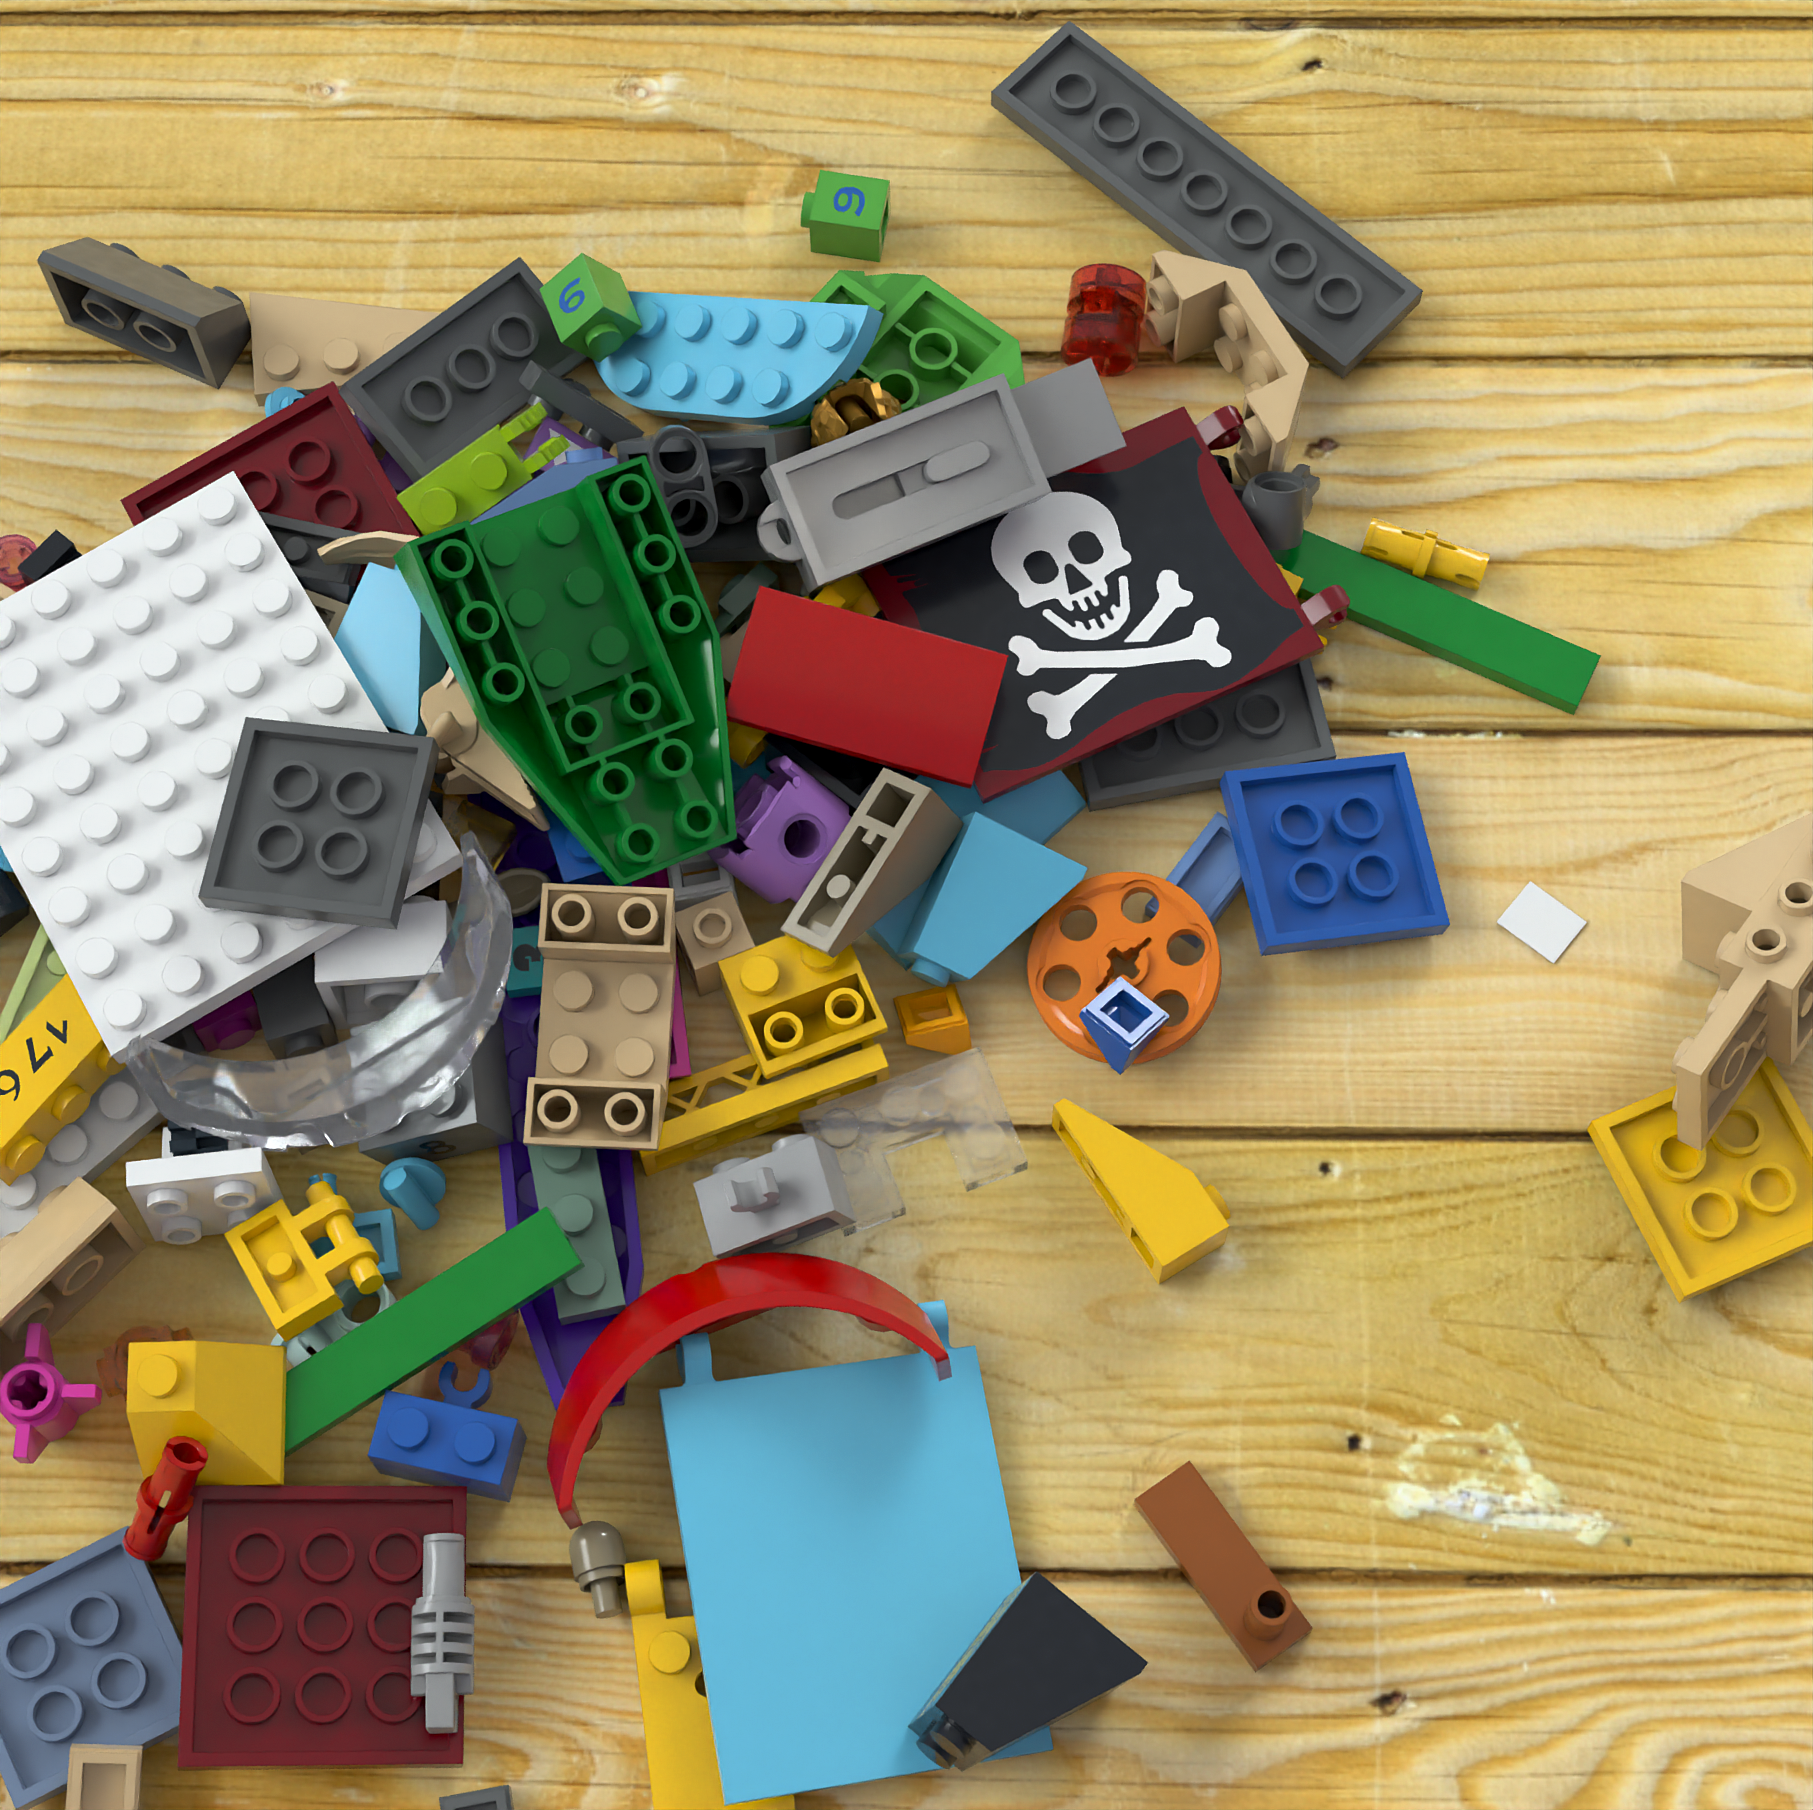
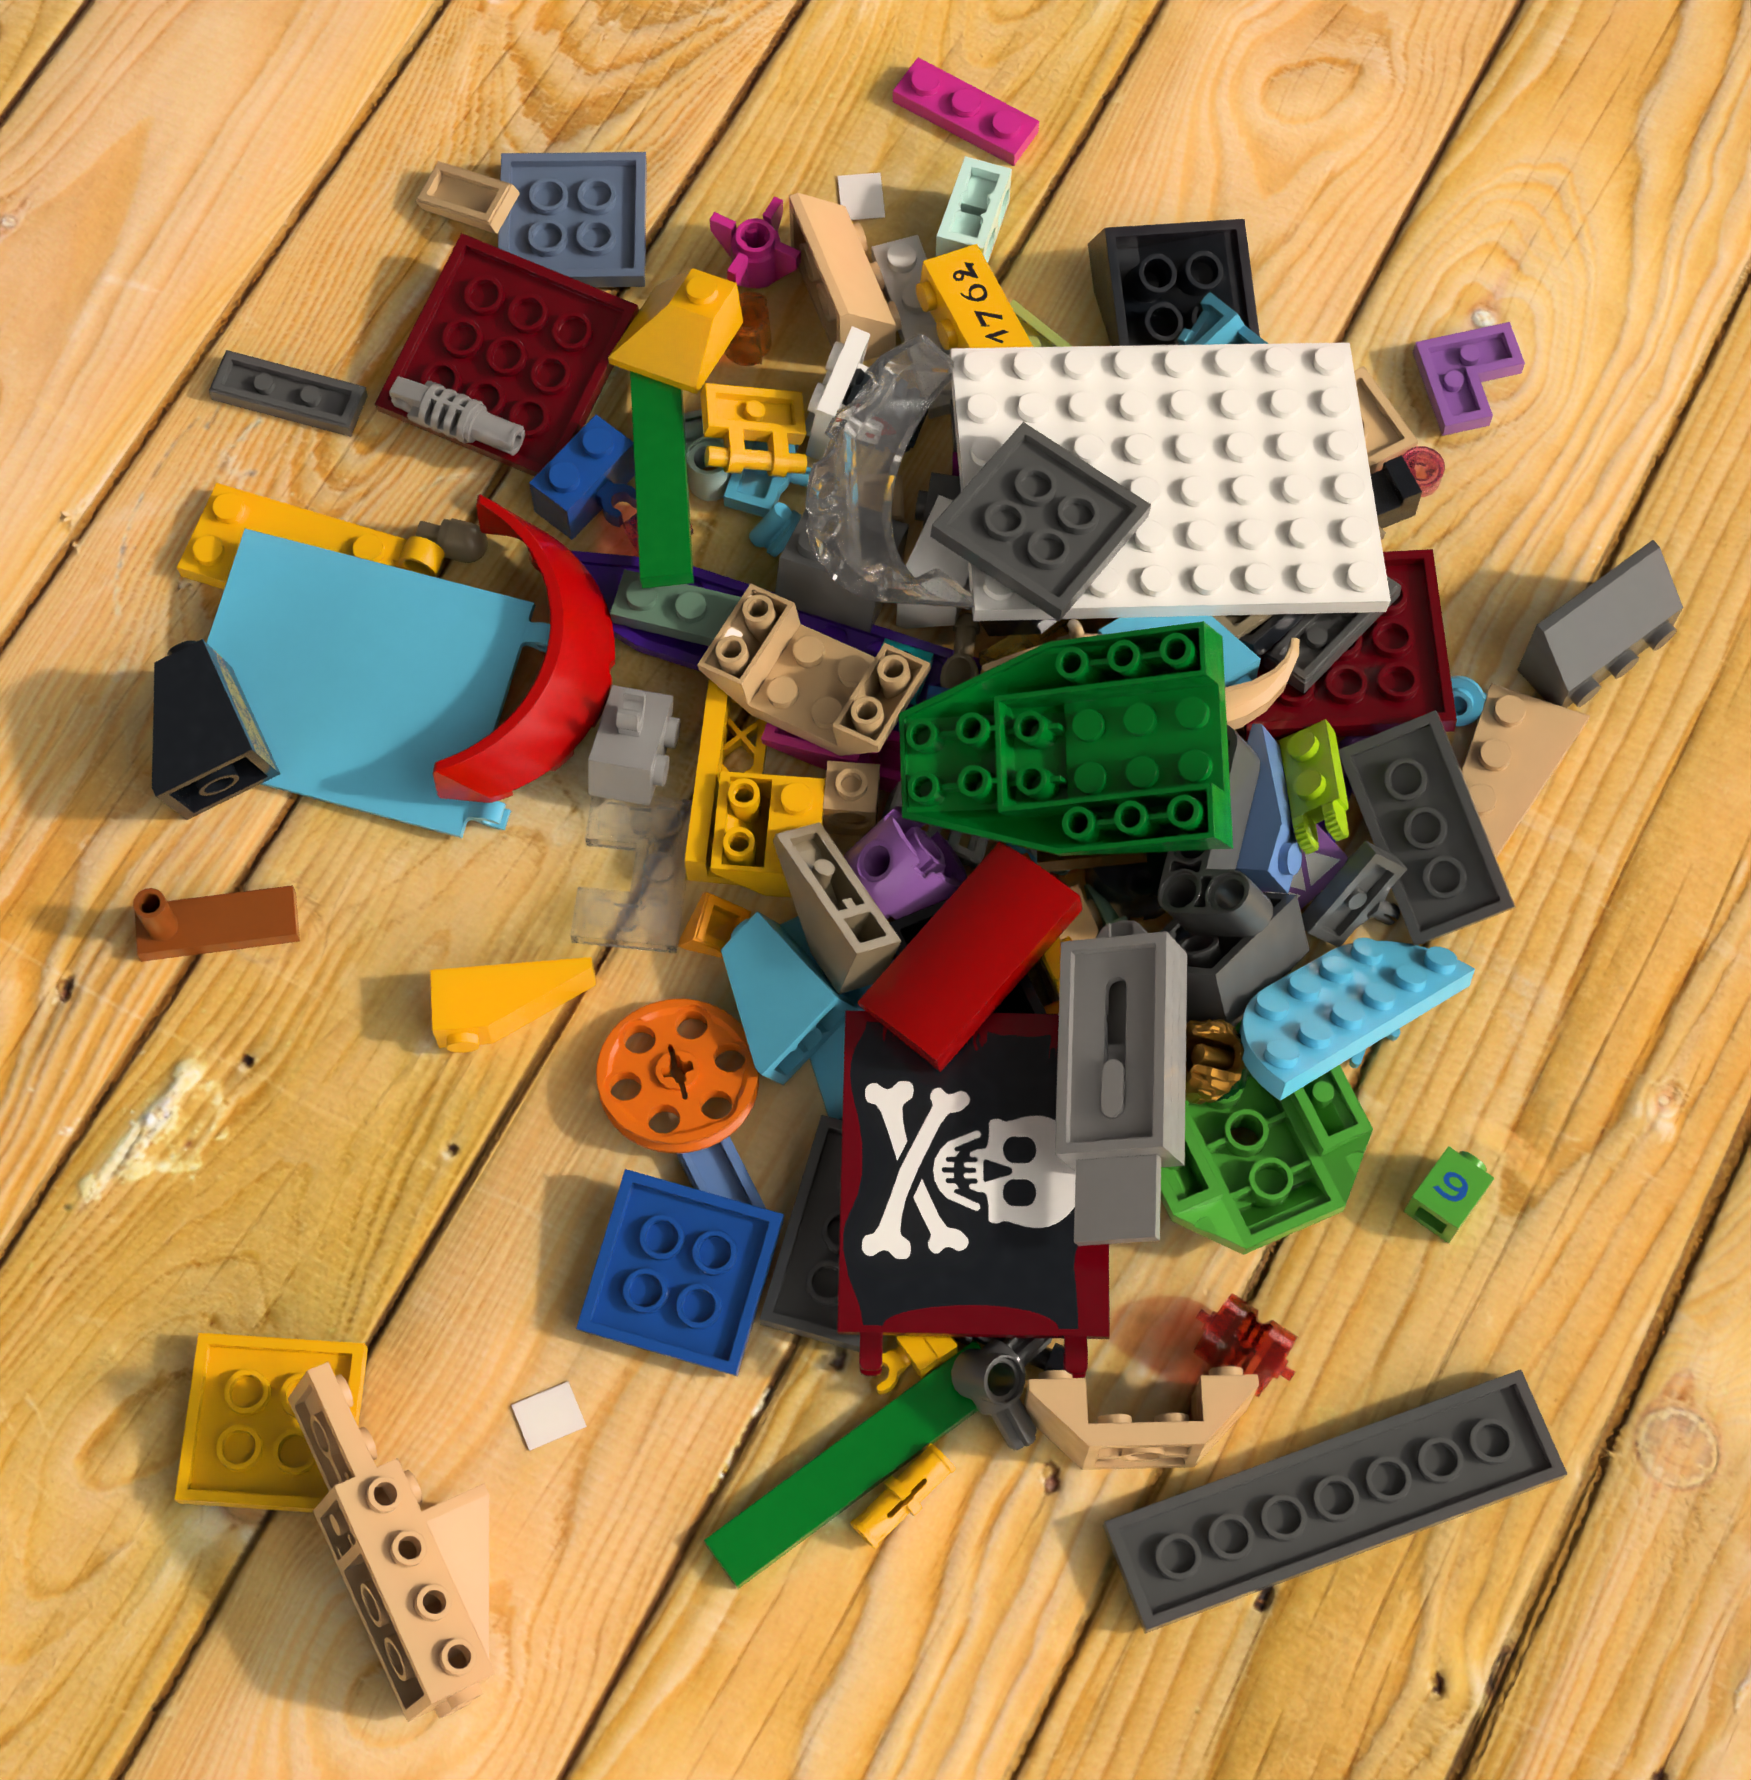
camera: 115 degrees right, 0 degrees up
(176, 1472) = (639, 281): red pin -> none
(590, 308) = (1437, 937): bright green brick -> none
(1122, 1023) = (630, 1042): blue slope -> none

